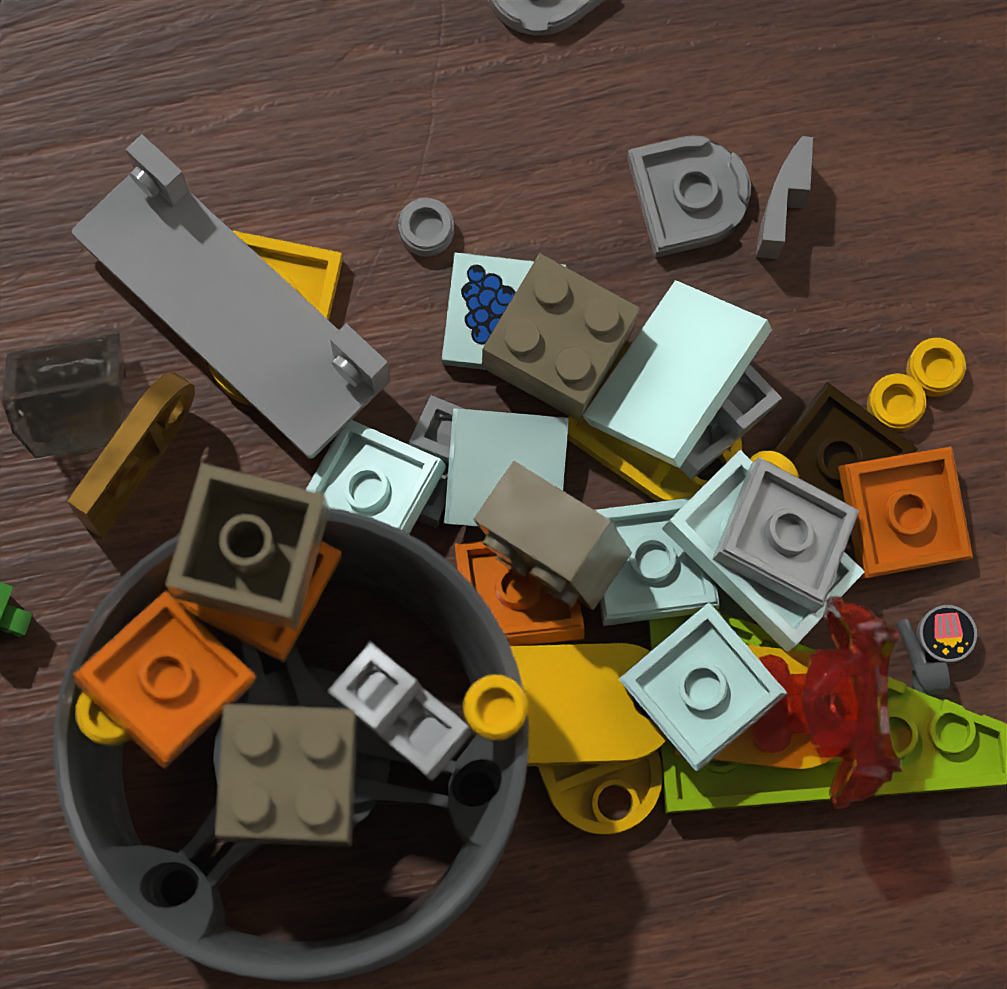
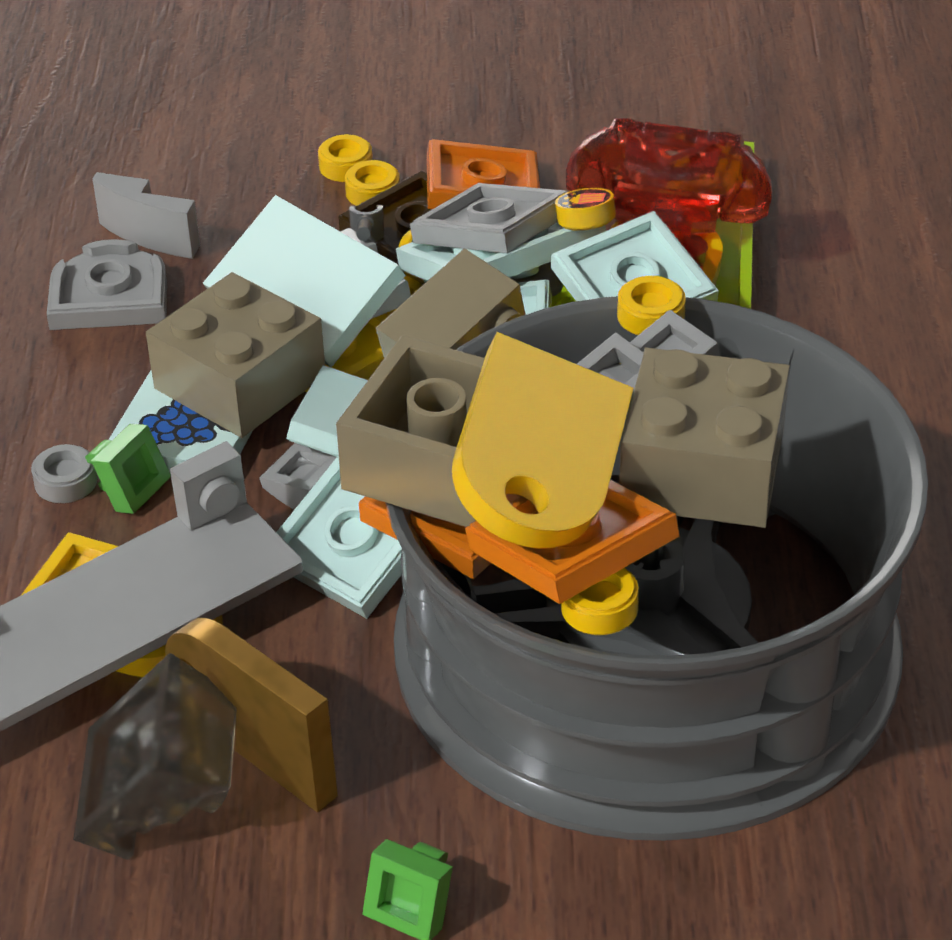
camera: 75 degrees left, 35 degrees down
(206, 636) = (539, 434): none -> yellow tile
(421, 280) = (129, 467): none -> bright green tile
(784, 413) = (367, 224): none -> dark grey hand
(794, 623) = (585, 208): none -> yellow tile

